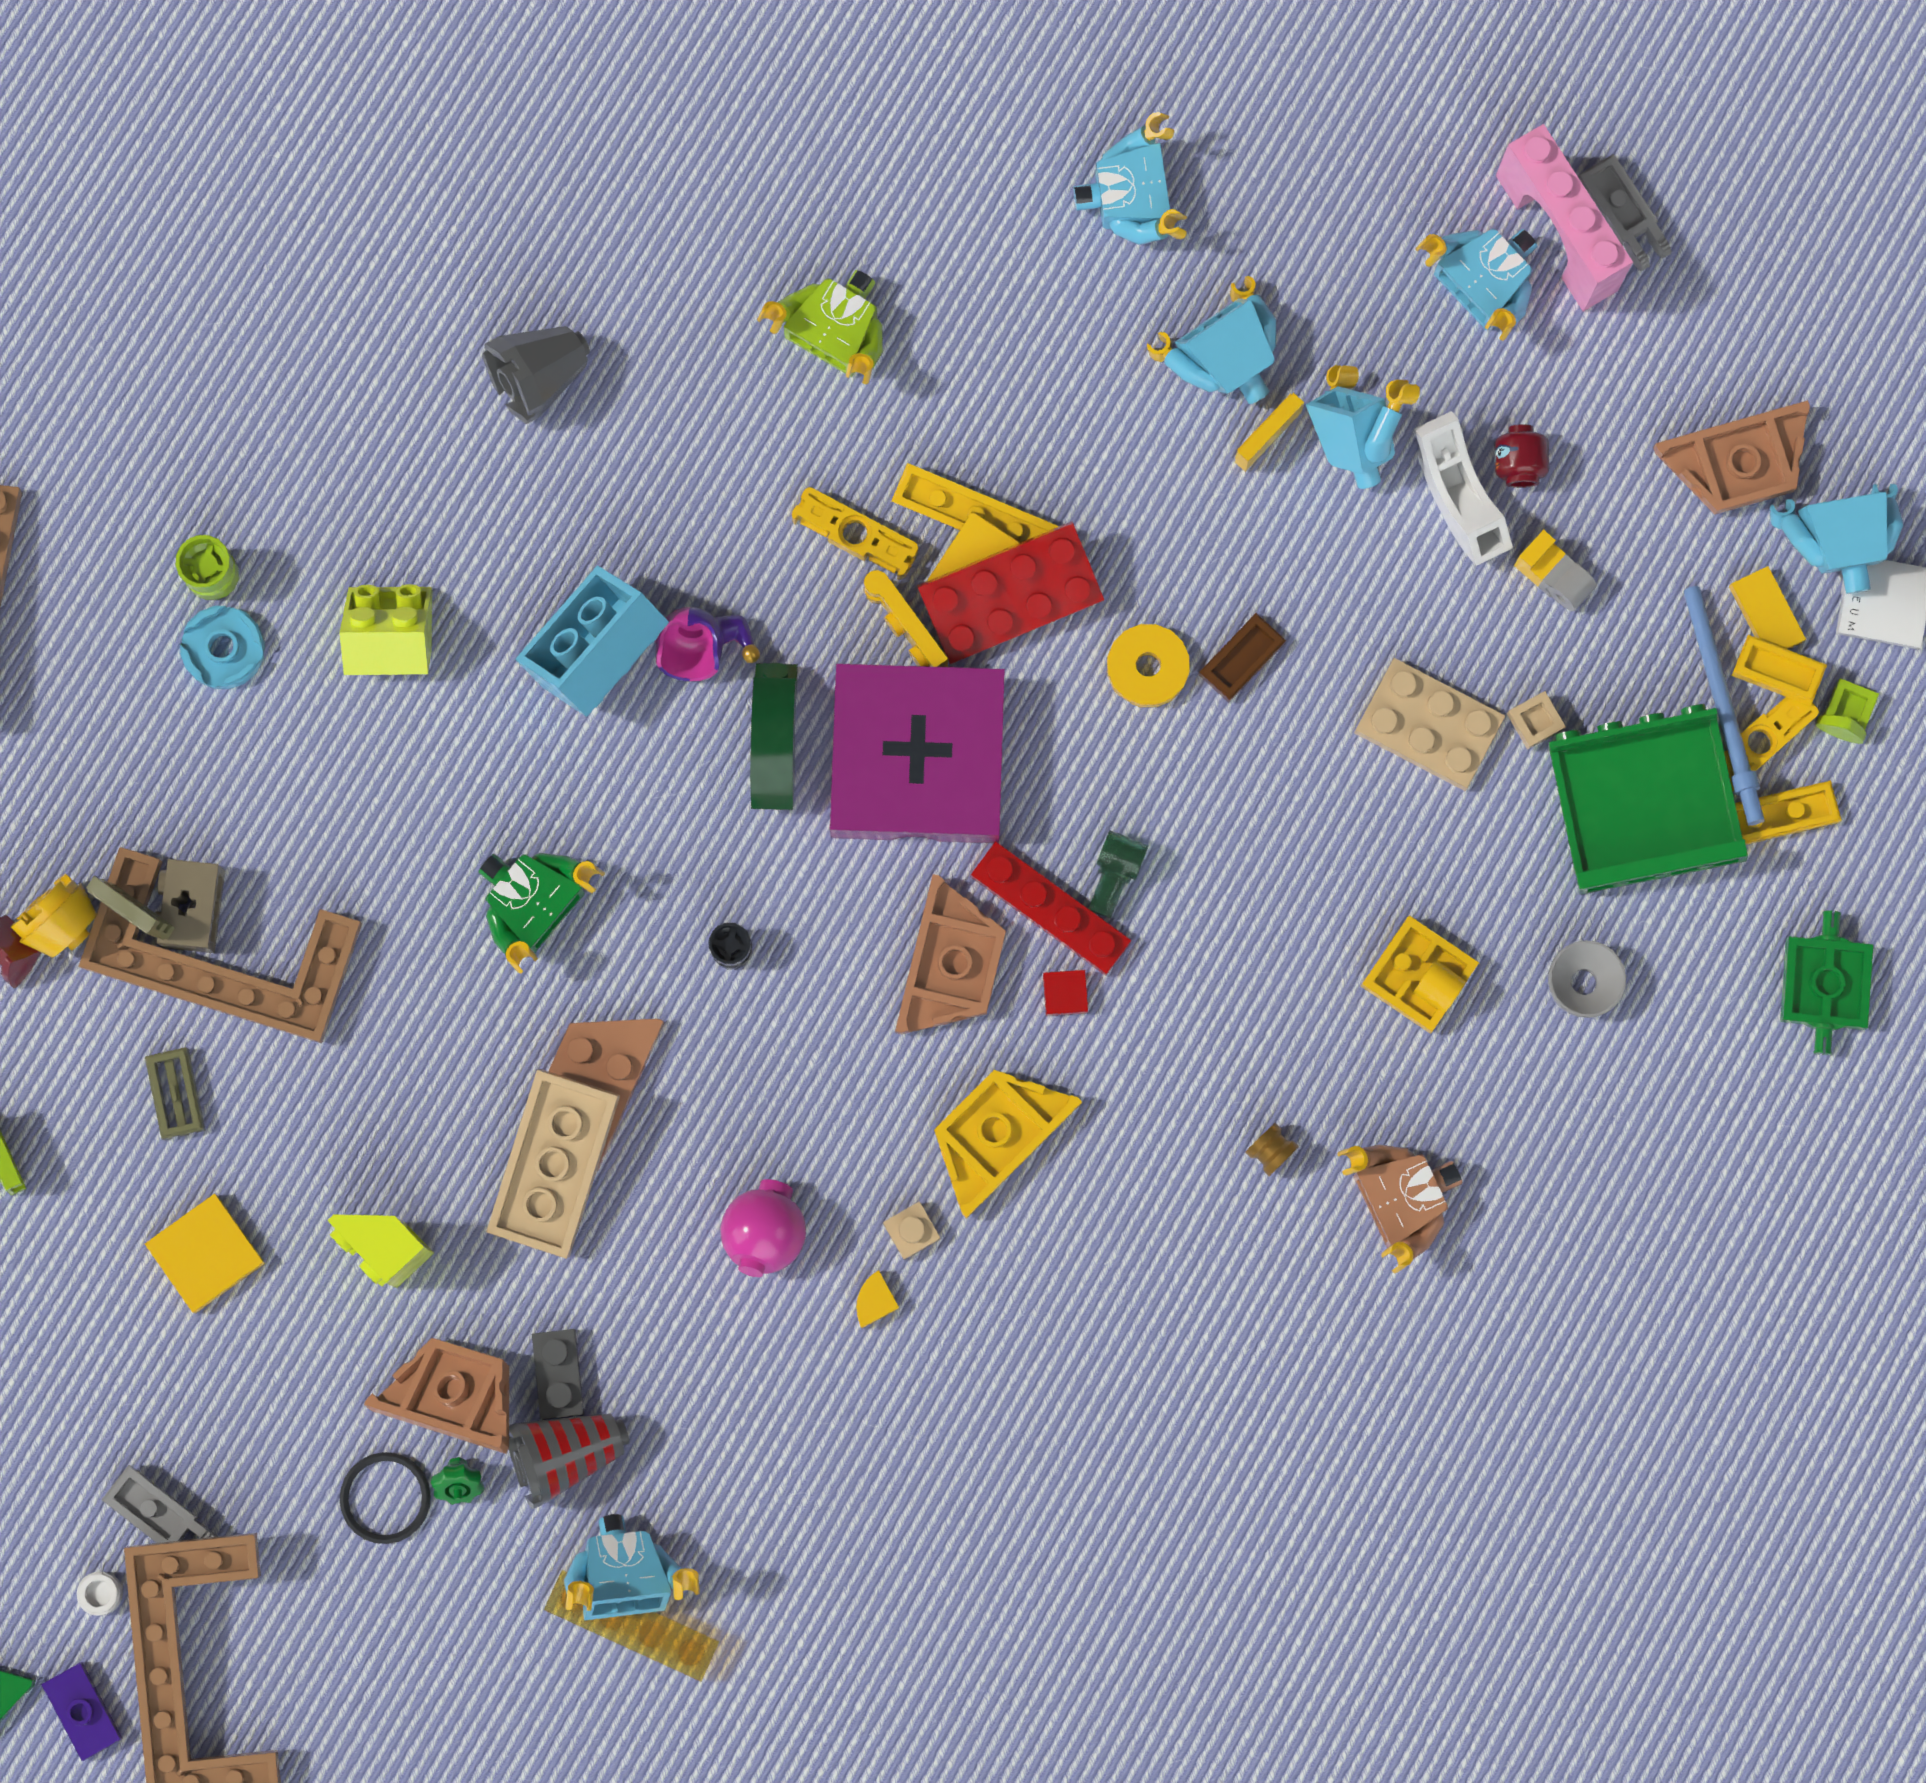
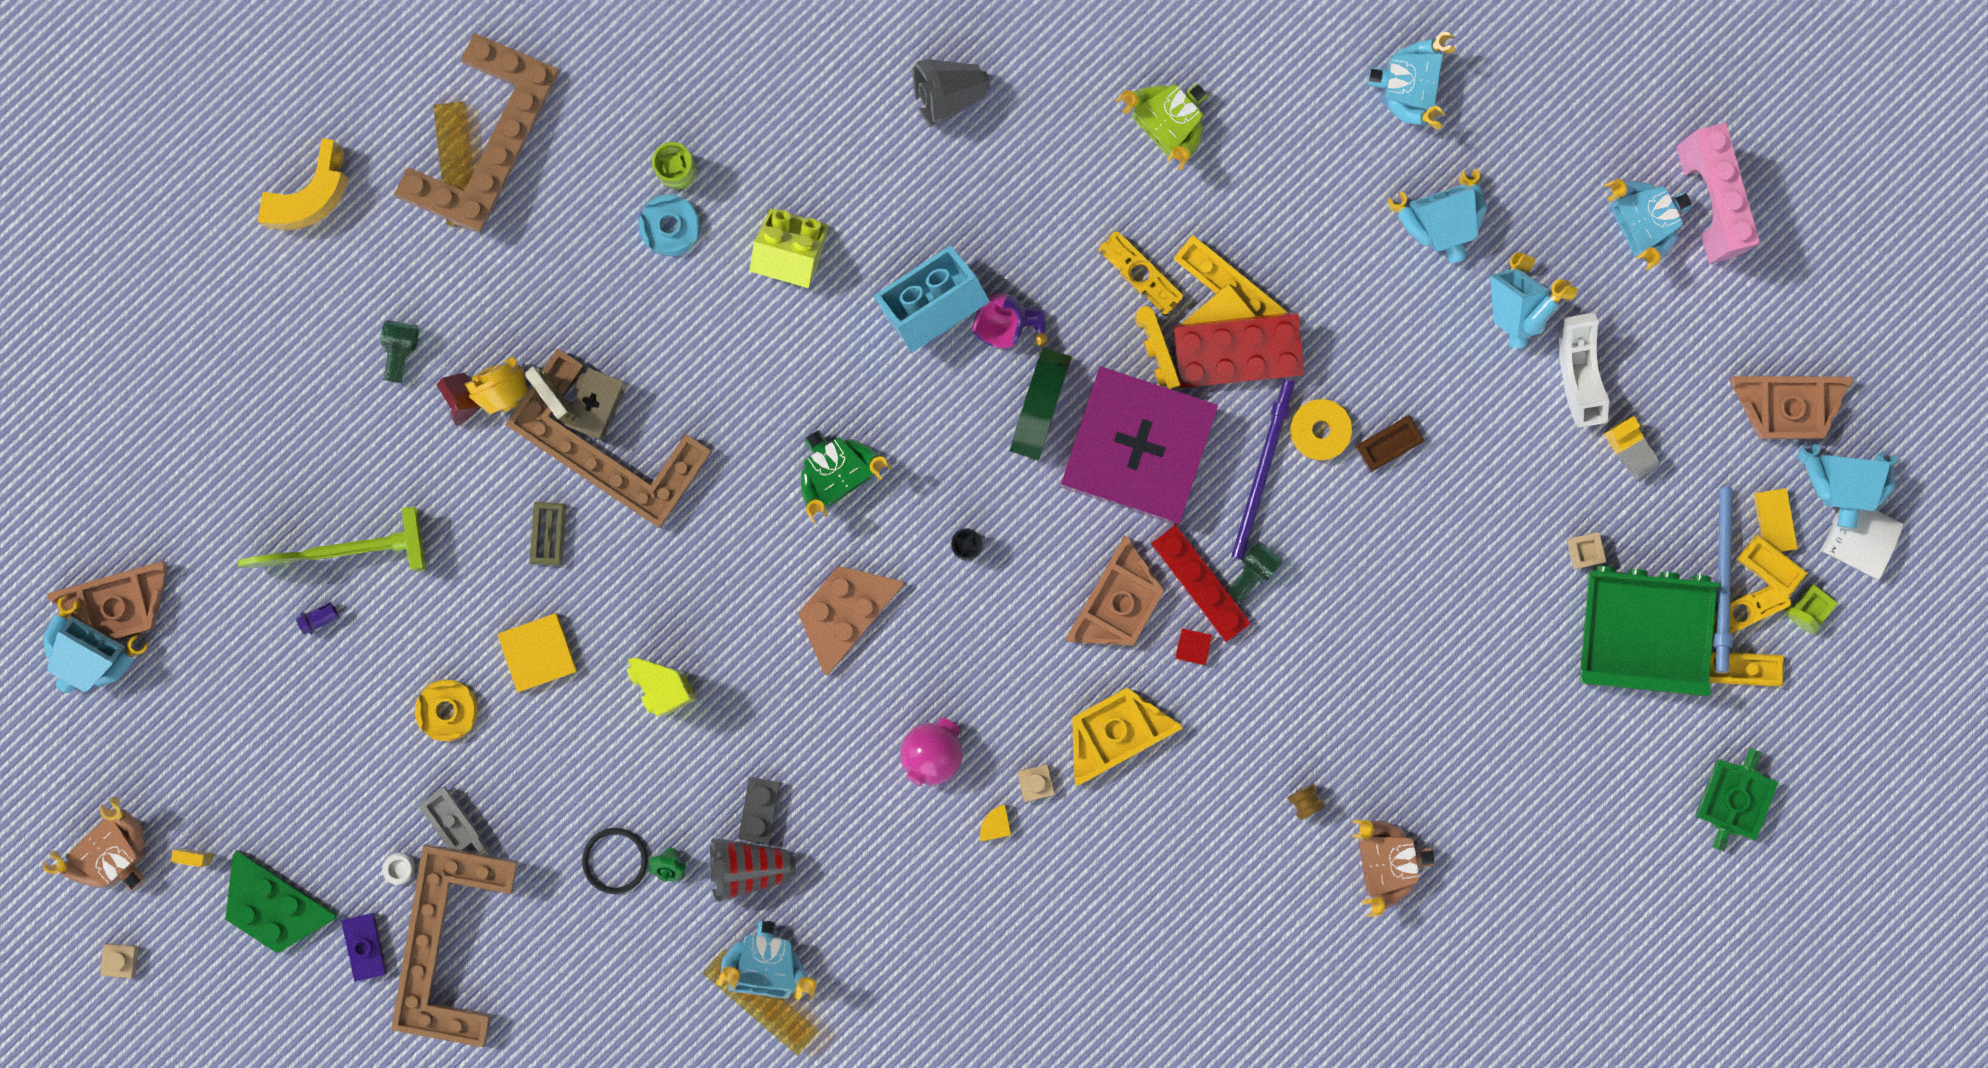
camera: 20 degrees right, 5 degrees up
(130, 1369) = (464, 714): none -> yellow tile
(451, 1394) = (681, 804): nougat wing -> none
(553, 1163) = (797, 662): tan plate -> none
(1088, 658) = (1280, 412): none -> dark purple bar
(1268, 431) = (1457, 286): yellow tile -> none
(1419, 974) = (1448, 708): yellow plate -> none
(1429, 724) = (1509, 530): tan plate -> none
(1521, 456) = (1633, 357): dark red head -> none
(1604, 967) = (1582, 747): light grey piece -> none
(1624, 209) = (1763, 198): light grey hinge -> none

